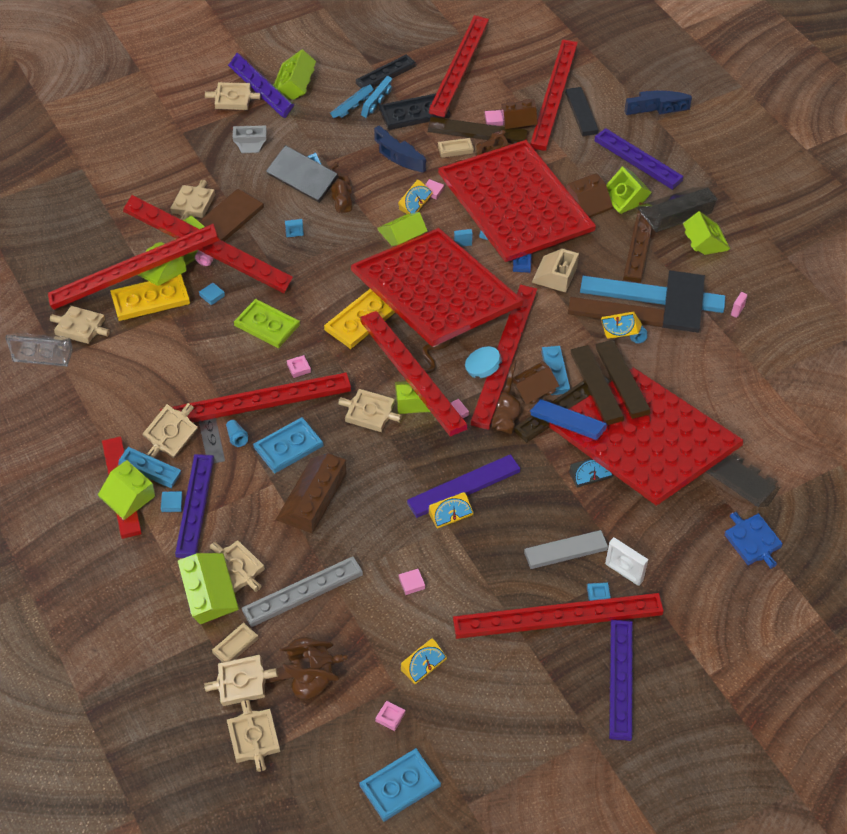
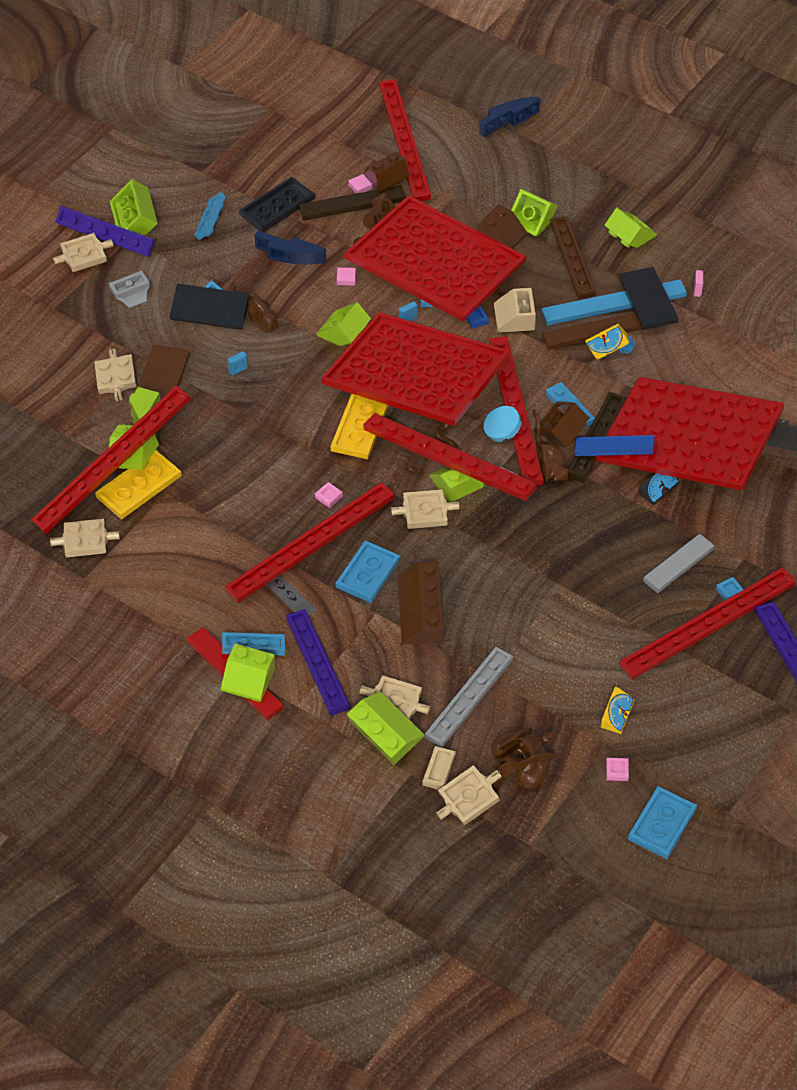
camera: 25 degrees left, 0 degrees up
(39, 349) = (65, 576): clear slope -> none
(170, 431) = (251, 601): tan plate -> none
(171, 501) = (293, 667): dark azure tile -> none
(203, 258) = (169, 427): bright pink tile -> none
(212, 293) = (197, 458): dark azure tile -> none
(219, 250) = (192, 411): red plate -> none
(237, 435) = (314, 580): dark azure cone -> none
(253, 735) = (510, 837): tan plate -> none
(267, 323) = (270, 466): lime tile -> none
(377, 97) = (234, 202): dark azure plate -> none
(391, 69) = (223, 174): black tile -> none
(411, 581) = (562, 647): bright pink tile -> none
(414, 198) = (337, 291): slope -> none
(450, 510) = (556, 570): slope -> none
(455, 147) = (341, 227): tan tile -> none
(458, 66) = (295, 143): red plate -> none
(466, 483) = (553, 544): dark purple tile -> none
(581, 111) = (440, 148): black tile -> none
(597, 385) = (619, 404): dark brown tile -> none
(622, 379) = (639, 390): dark brown tile -> none
(626, 561) = (741, 550): white tile -> none
(639, 158) = (523, 176): dark purple plate -> none
(678, 207) = (590, 211): clear smoke slope -> none

